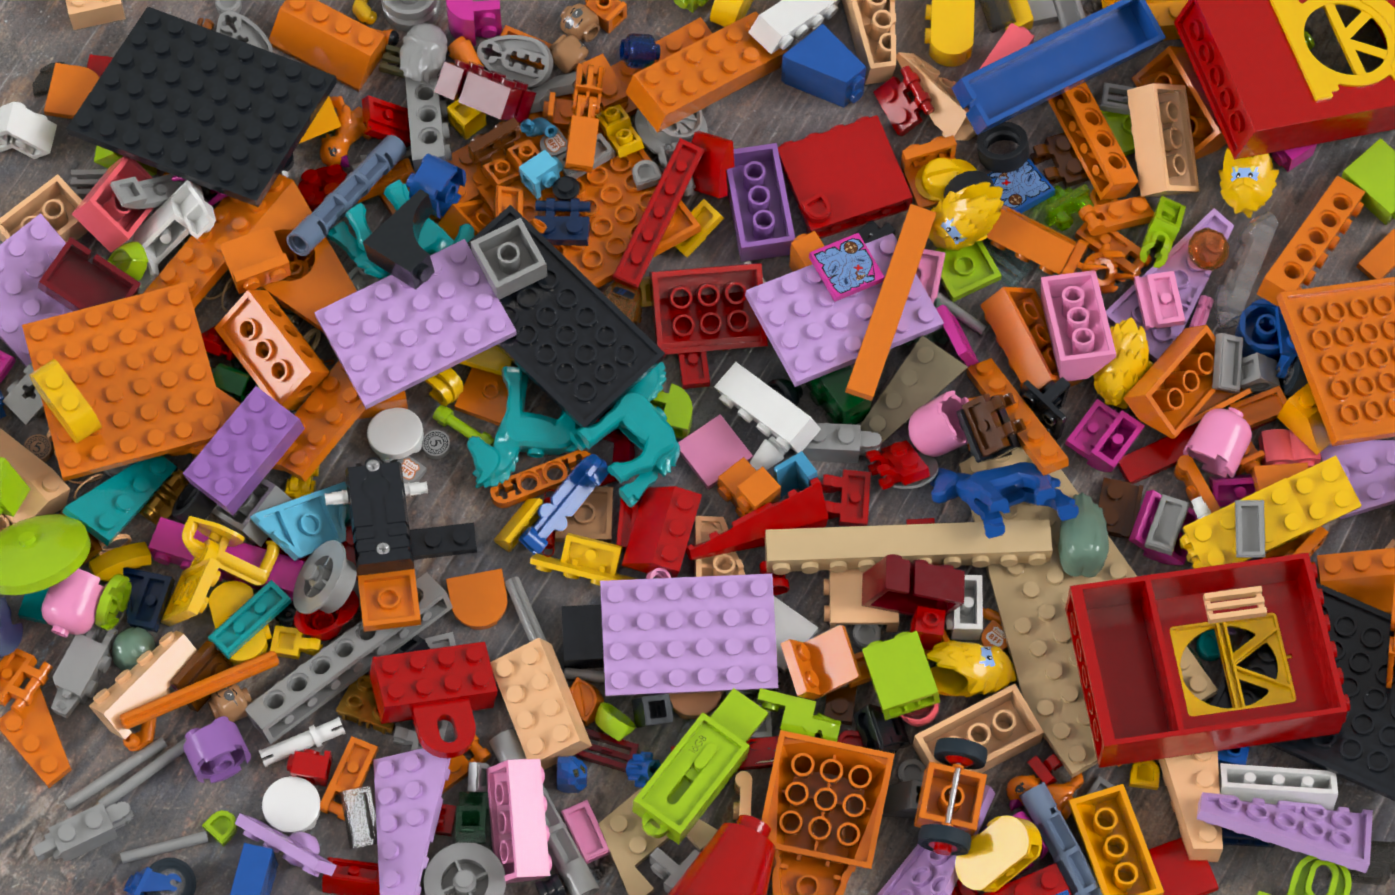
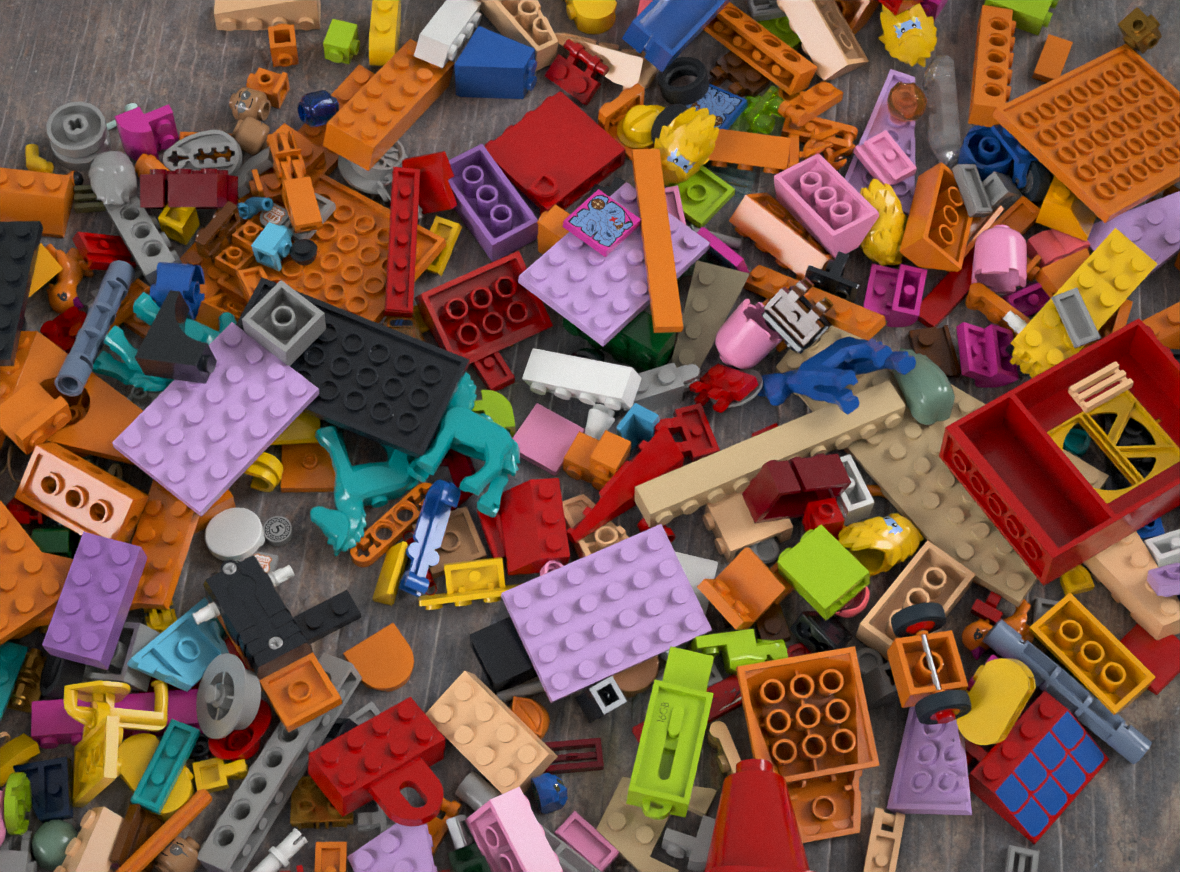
camera: 25 degrees left, 5 degrees down
(445, 417) = (275, 502): lime bar -> none
(524, 609) = (432, 653): light grey axle -> none
(565, 229) = (322, 286): dark blue plate -> none
(613, 721) = (568, 725): lime hat -> none
(619, 131) = (330, 185): yellow slope -> none
(642, 768) = (617, 759): blue gear -> none
(646, 174) = (373, 213): light grey tile -> none
(994, 636) = (882, 506): tile -> none
(1162, 230) = (857, 103): lime plate -> none
(1167, 524) = (991, 347): light grey tile -> none
(1202, 311) = (922, 159): bright pink axle -> none

